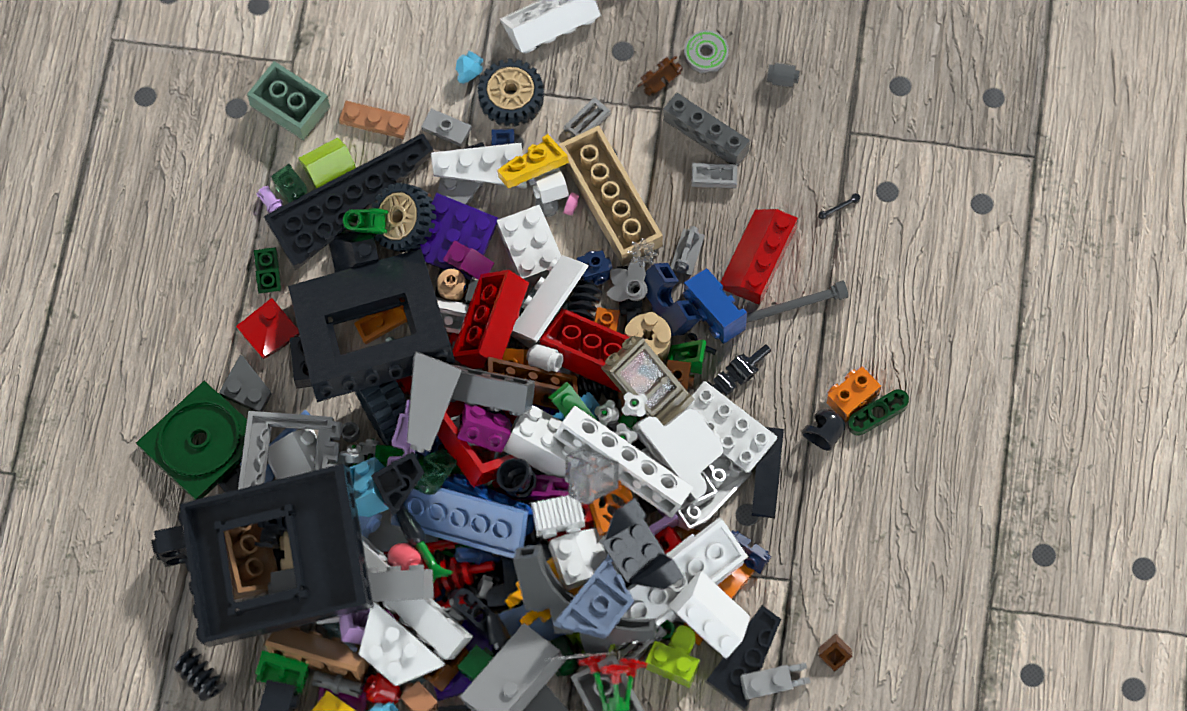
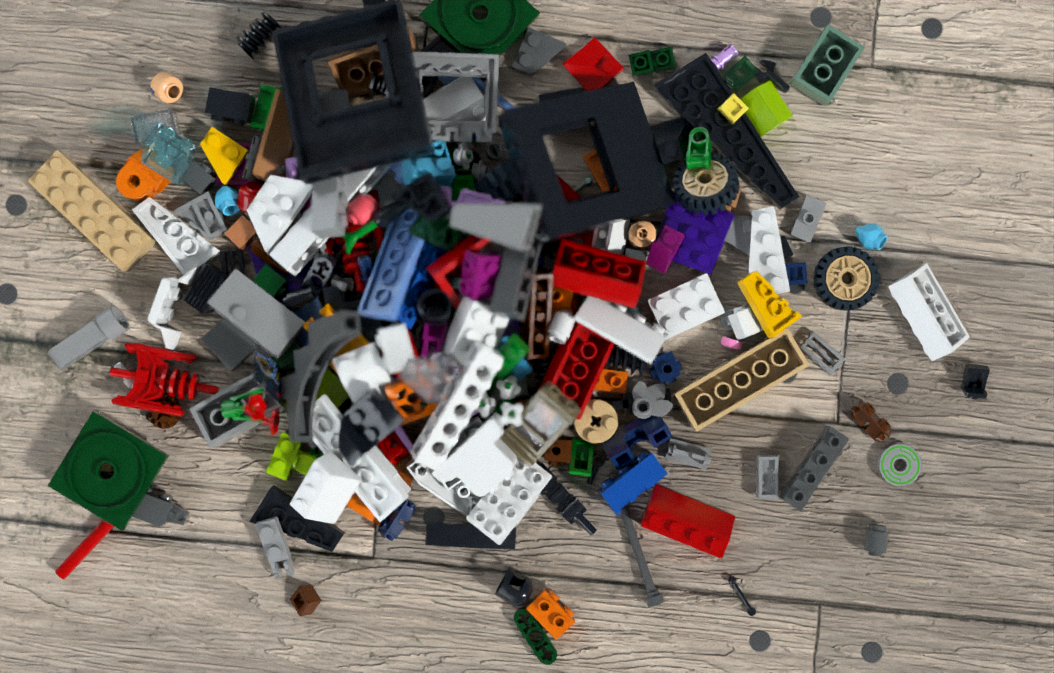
camera: 85 degrees right, 20 degrees up
(293, 157) = (776, 80): none -> black bar
(325, 191) = (732, 108): none -> light yellow tile
(374, 119) = (813, 150): nougat plate -> none
(598, 603) = (314, 389): sand blue wing -> none
(648, 252) = (679, 409): clear gear -> none

